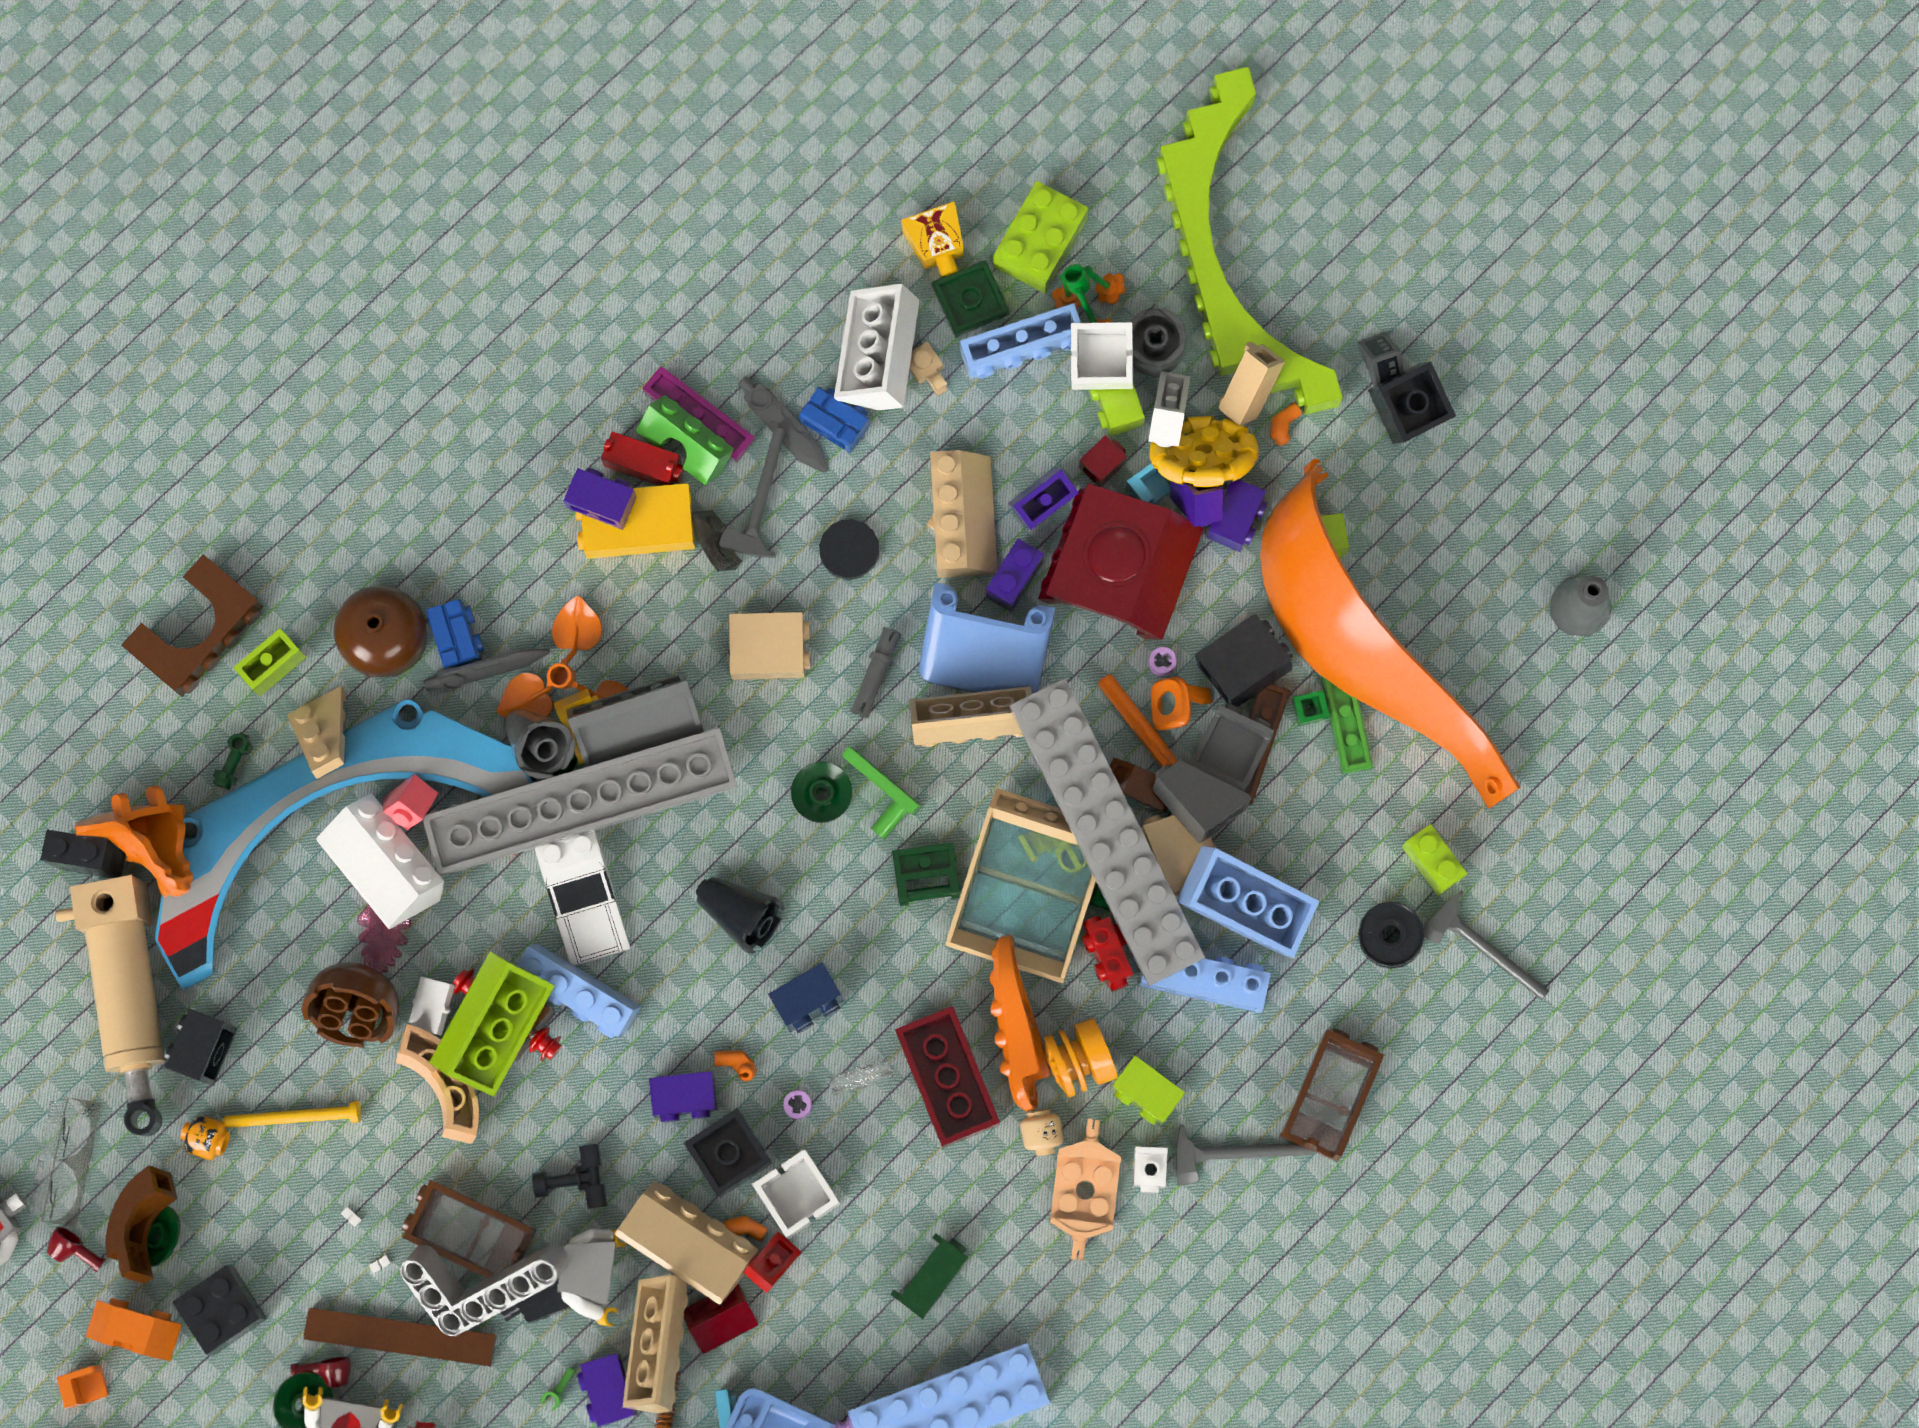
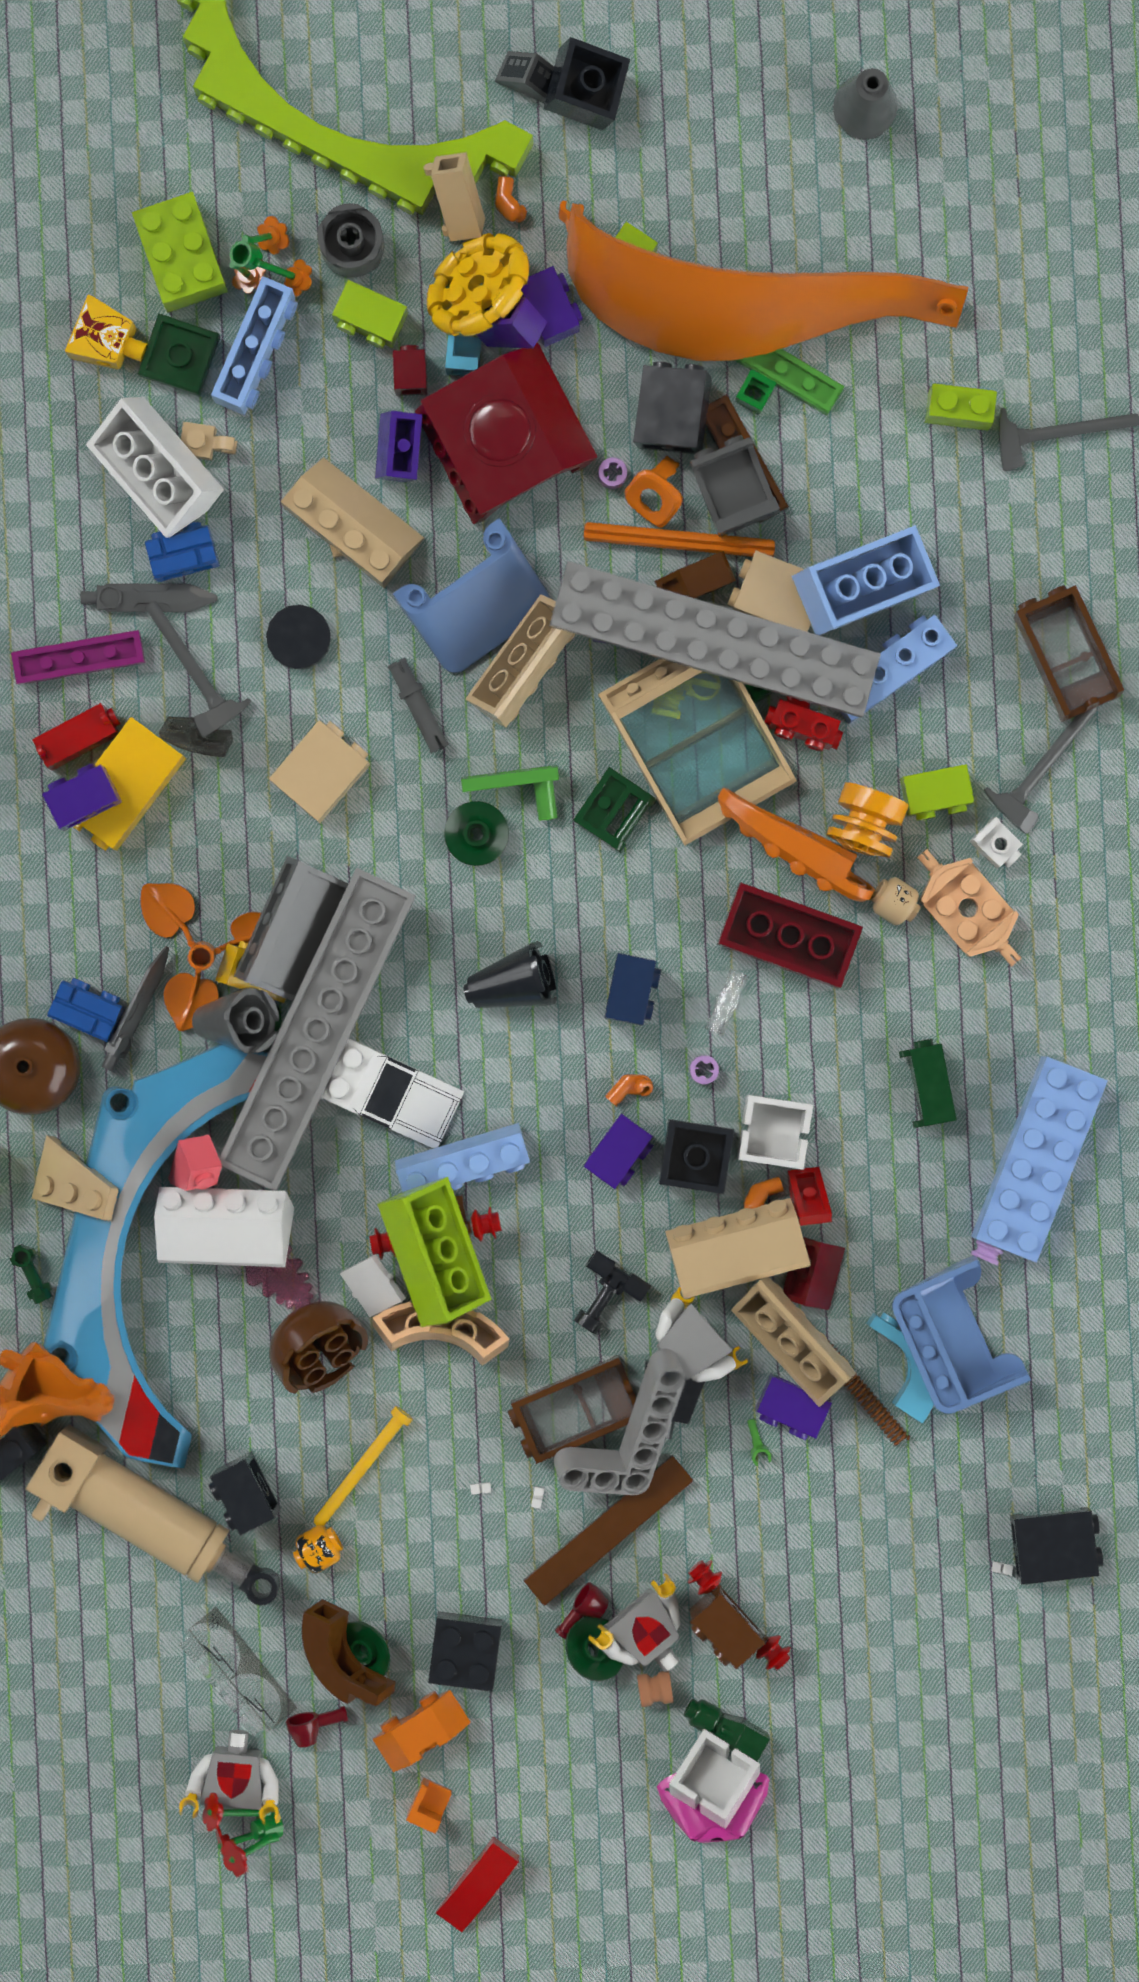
camera: 55 degrees left, 10 degrees up
(704, 449) = (114, 678): bright green arch -> none
(1014, 575) = (439, 525): dark purple brick -> none
(1101, 356) = (329, 293): white piece -> none
(1169, 409) = (419, 280): white brick -> none
(1198, 799) = (751, 545): dark grey slope -> none
(1391, 916) = (992, 474): black wheel -> none

